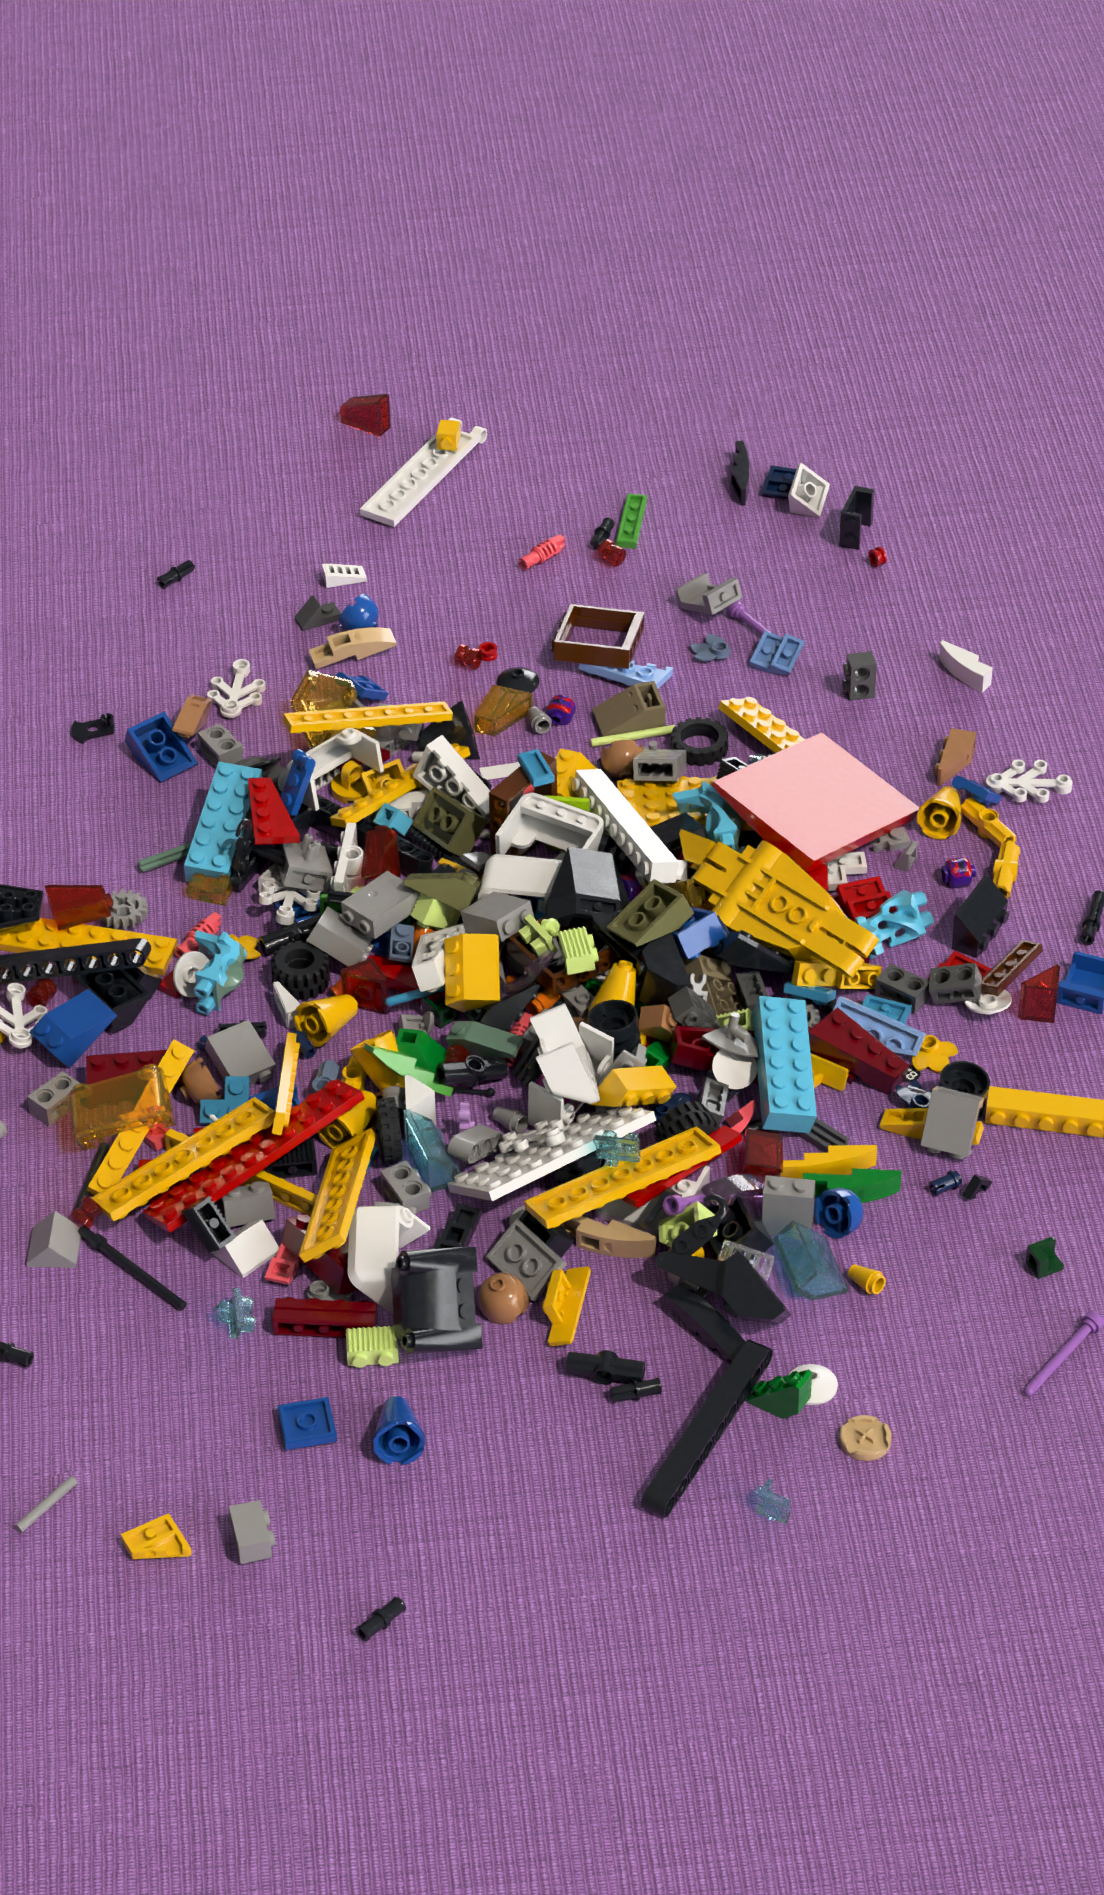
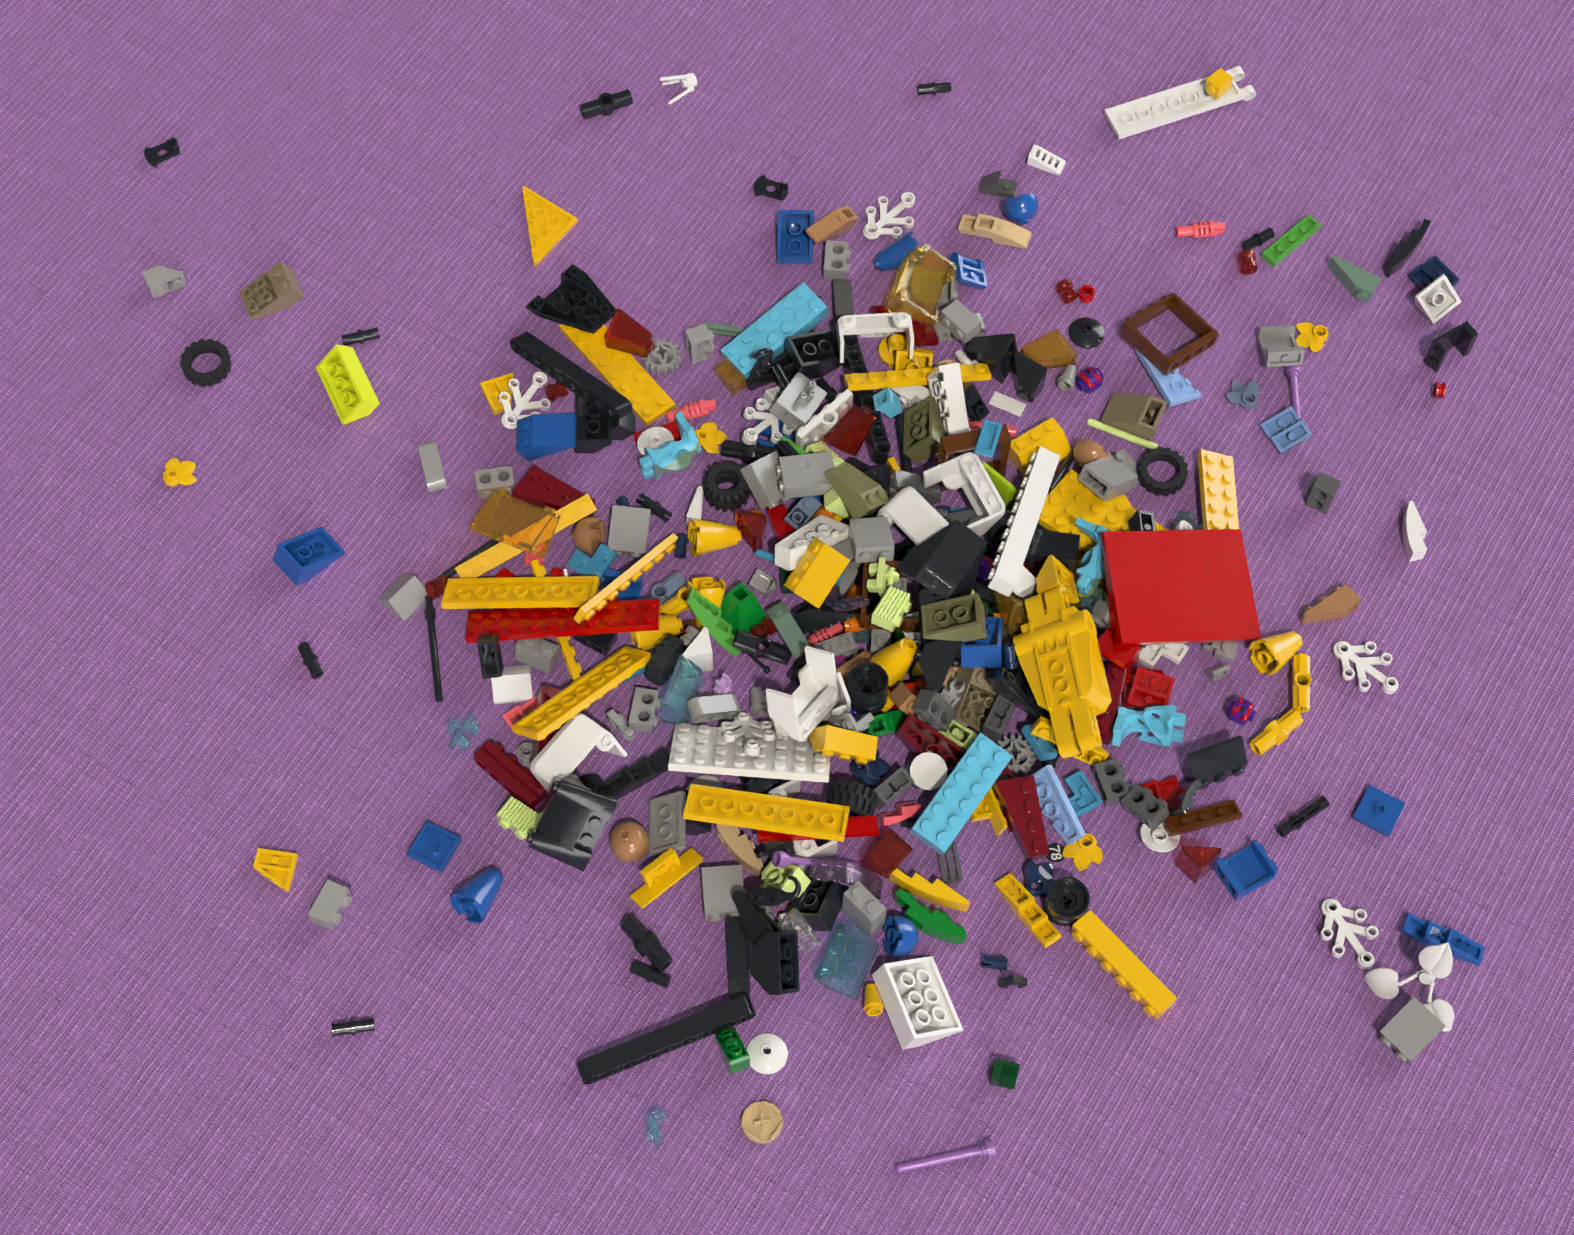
camera: 35 degrees right, 20 degrees up
(44, 1505) = (239, 790): light grey bar -> none
(154, 875) = (699, 343): none -> light grey brick
(266, 765) = (835, 301): black dish -> none
(269, 815) = (796, 352): red wing -> none
(276, 705) = (892, 255): none -> blue cone
(297, 781) = (832, 337): blue plate -> none
(367, 413) = (1182, 26): clear red slope -> none
(367, 717) = (928, 311): yellow plate -> none
(501, 733) = (1027, 377): none -> black slope
(616, 1148) = (773, 790): clear light blue hips -> none
(635, 1282) = (718, 888): none -> light grey brick
(719, 517) = (1356, 280): none -> sand green slope
(728, 571) = (1309, 336): none -> yellow plate
(733, 1038) = (941, 751): light grey shield -> none
(907, 1255) = (916, 1001): none -> white slope
(951, 1122) = (1033, 921): light grey panel -> none
(977, 790) = (1316, 655): blue plate -> none
(982, 956) = (1184, 798): none -> black slope

